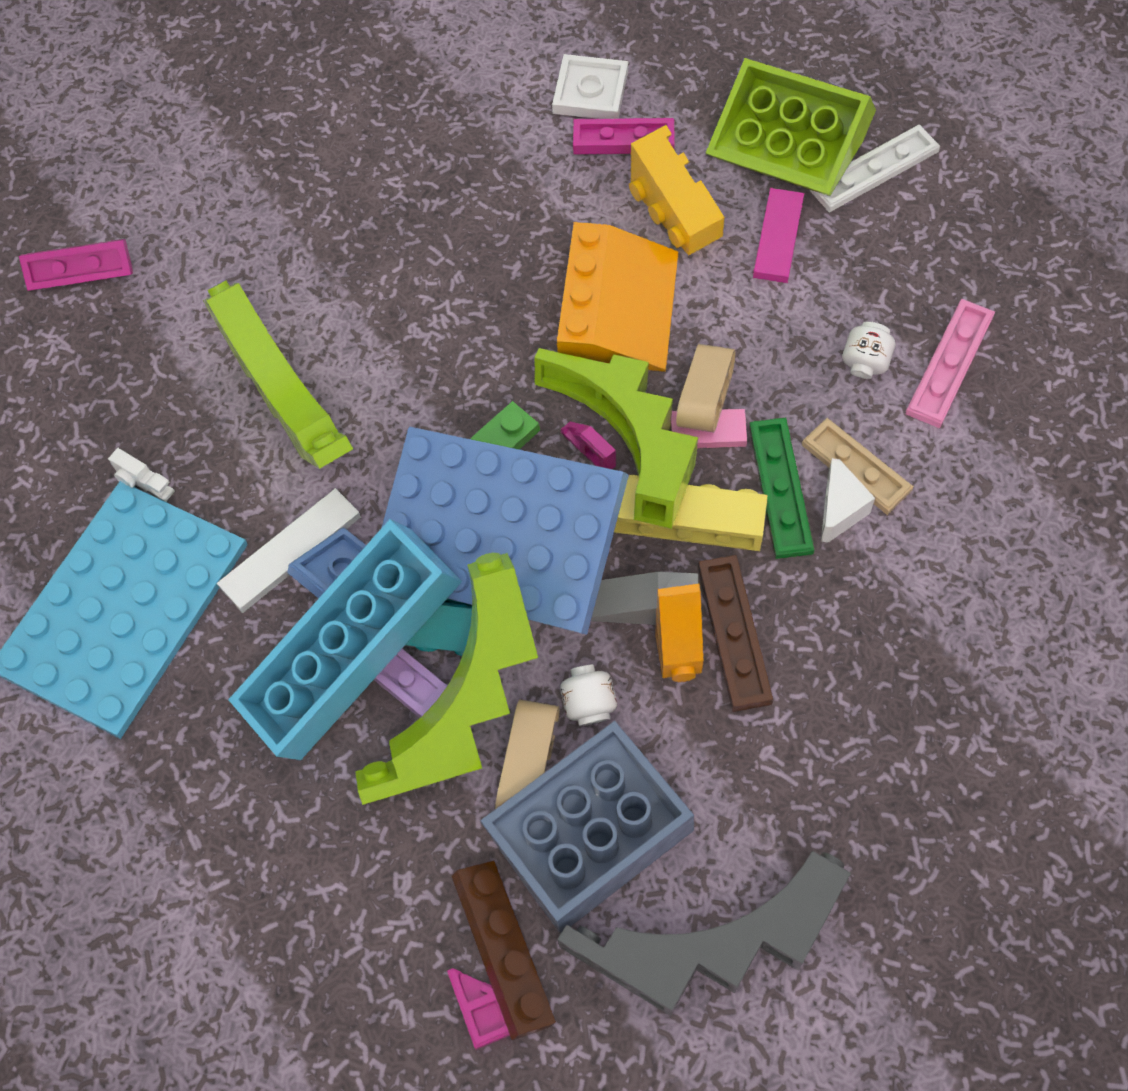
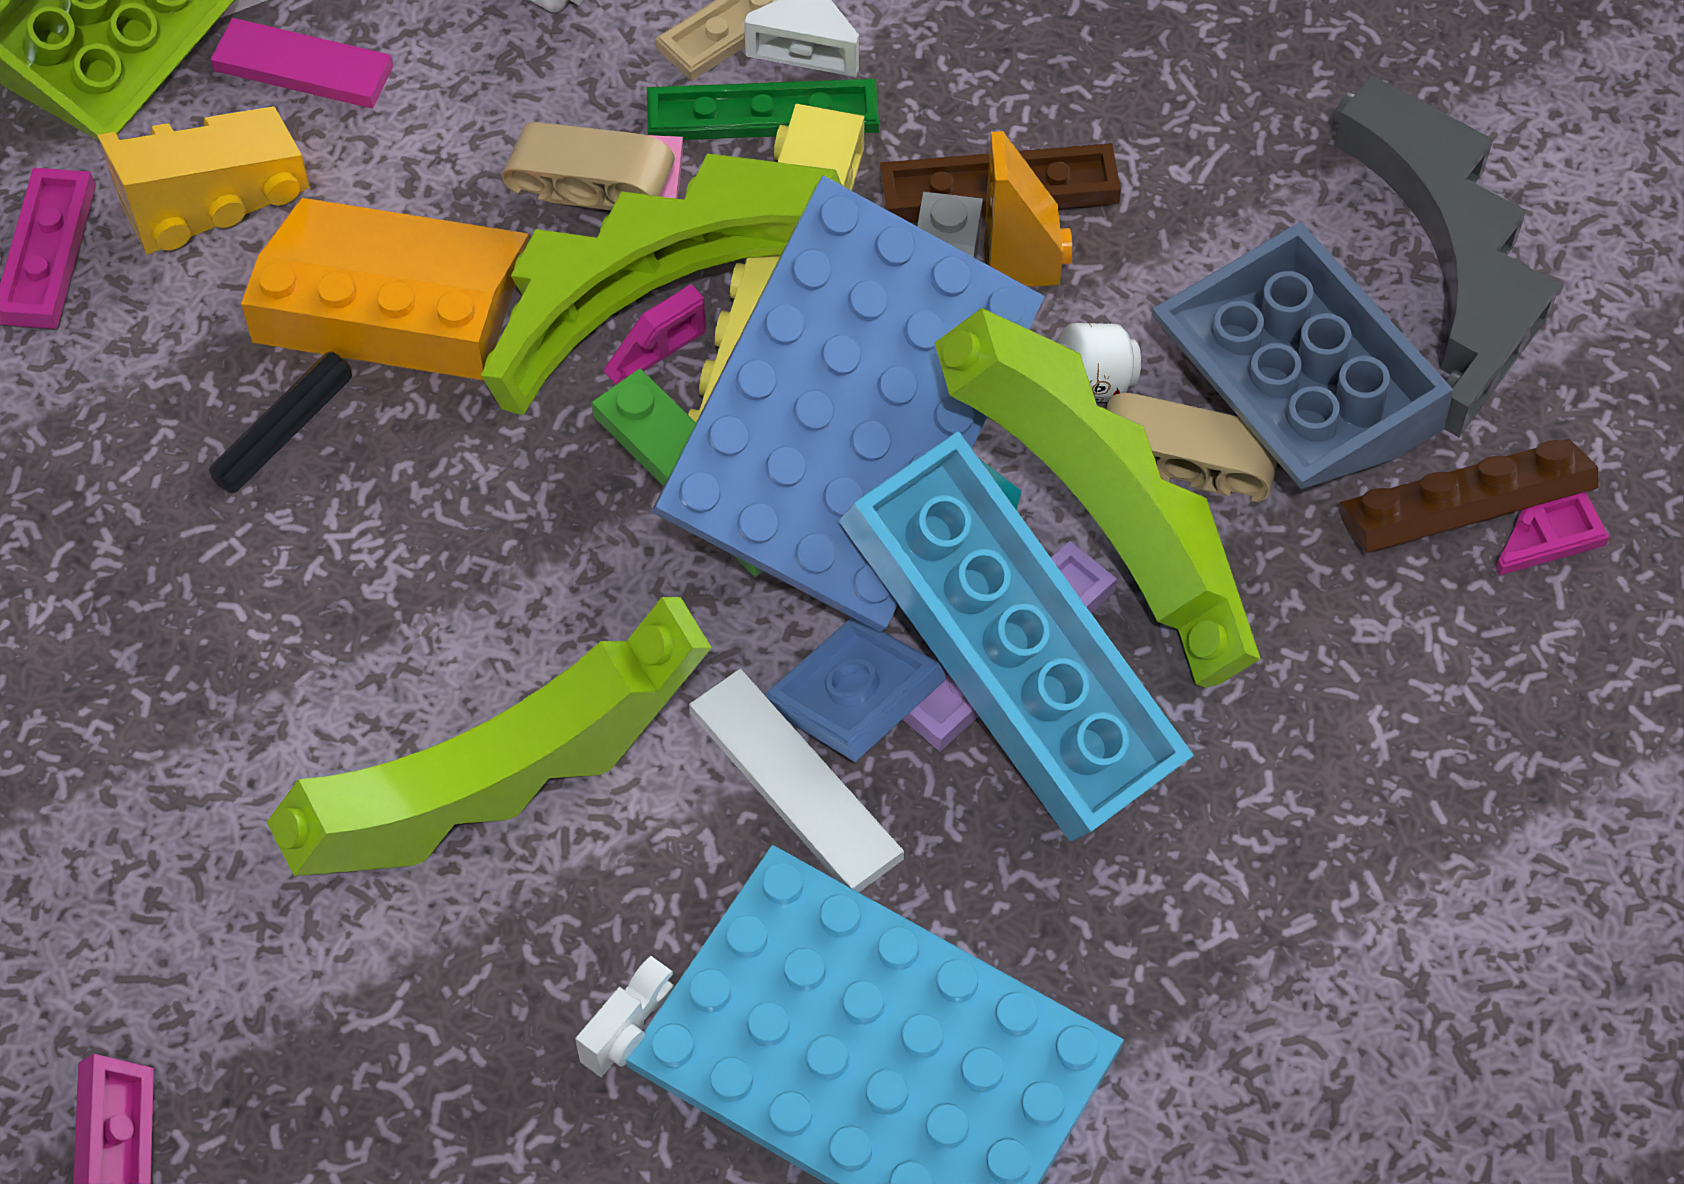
camera: 90 degrees left, 5 degrees down
(518, 266) = (280, 422): none -> black axle

